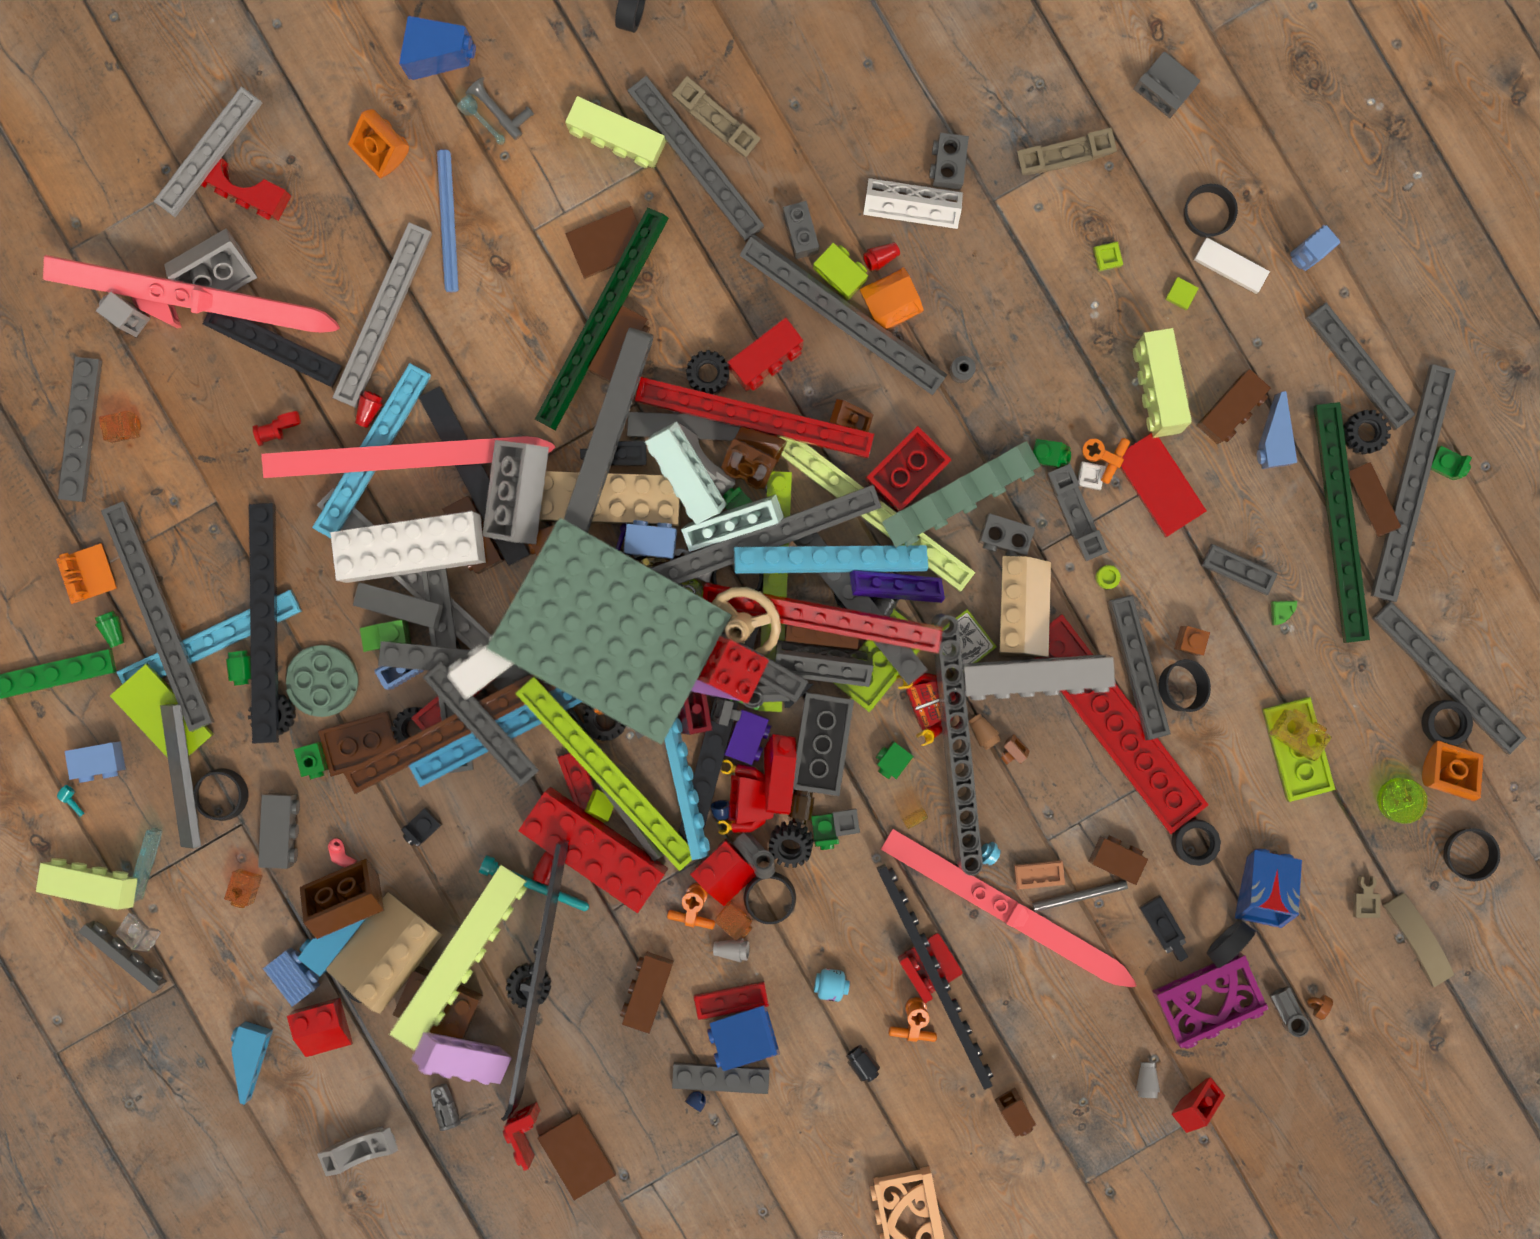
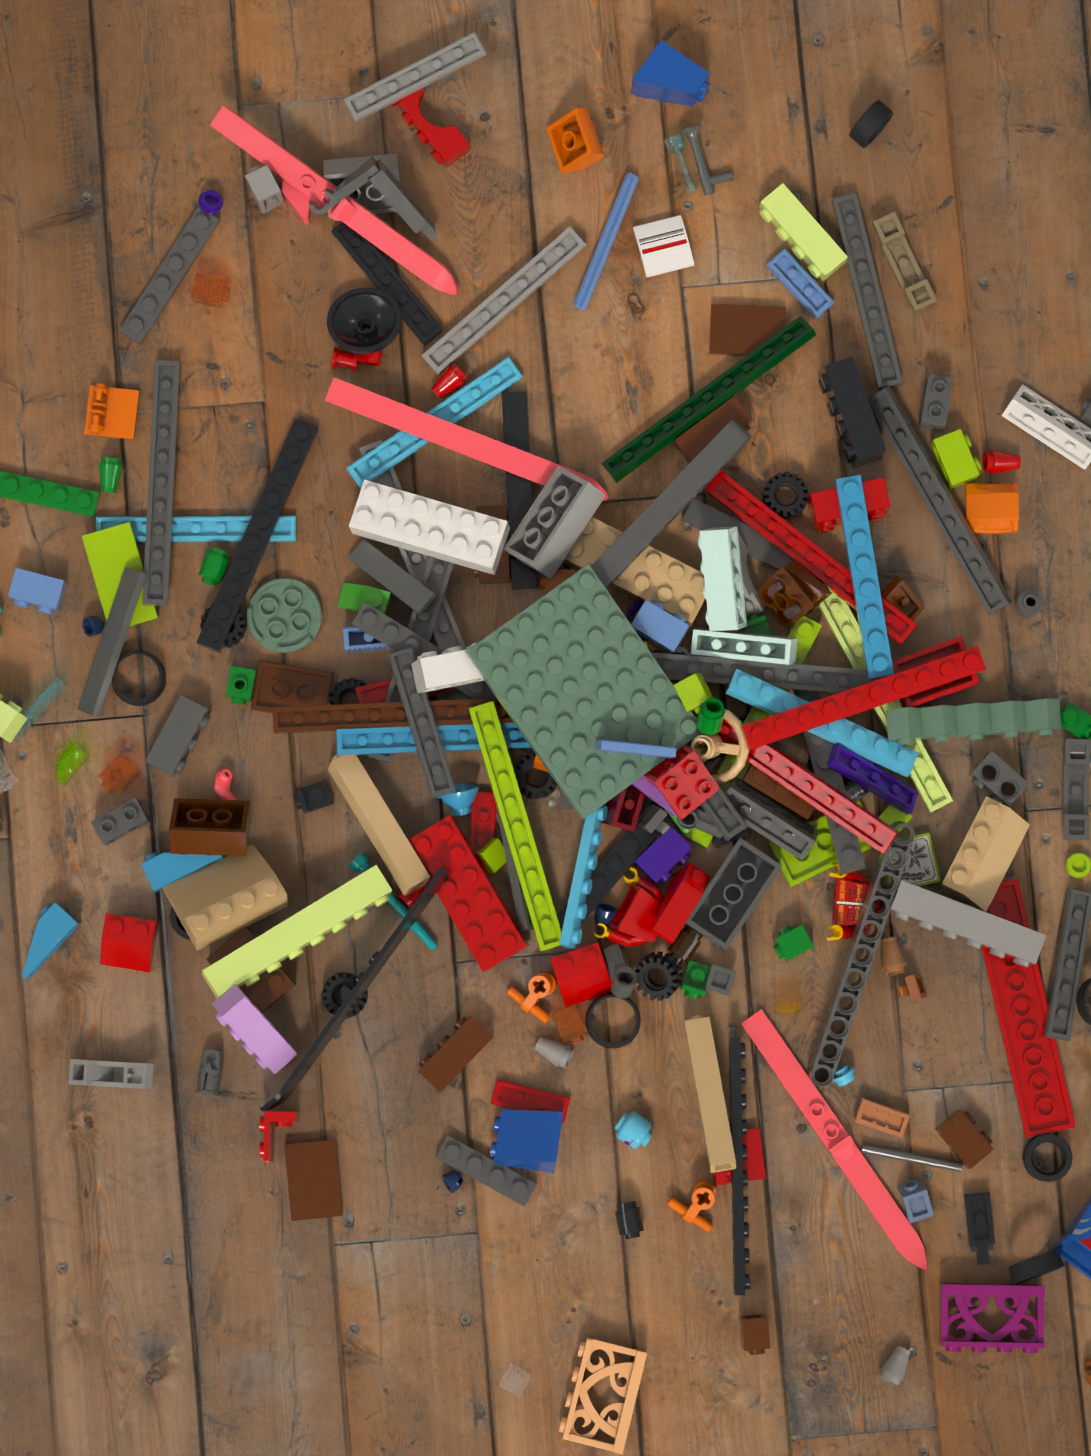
camera: 25 degrees right, 5 degrees down
(84, 347) = (210, 202): none -> dark purple plate
(158, 768) = (92, 625): none -> dark blue hinge
(196, 896) = (69, 763): none -> clear neon green brick
(233, 263) = (388, 187): none -> dark grey hinge
(257, 386) = (361, 310): none -> black dish
(263, 928) = (120, 821): none -> dark grey brick
(292, 976) = (125, 880): medium blue brick -> none
(487, 826) = (378, 823): none -> tan brick
(499, 201) = (663, 246): none -> white slope
(549, 769) = (461, 800): none -> dark azure piece
(627, 454) = (673, 536): black hinge -> none
(634, 179) = (800, 284): none -> medium blue tile
(678, 662) = (635, 748): none -> medium blue tile
(708, 586) = (693, 692): none -> lime brick
(731, 601) = (710, 716): none -> green brick
(732, 272) = (852, 413): none -> black brick
(808, 413) = (864, 576): none -> dark azure plate
(856, 521) = (863, 698): none -> red plate
(882, 927) = (710, 1094): none -> tan brick
(929, 610) = (893, 814): none -> lime tile
(1100, 931) = (915, 1200): none -> sand blue bracket
(1198, 1106) = (934, 1412): red slope -> none
(1289, 1010) = (1063, 1360): dark grey piece -> none

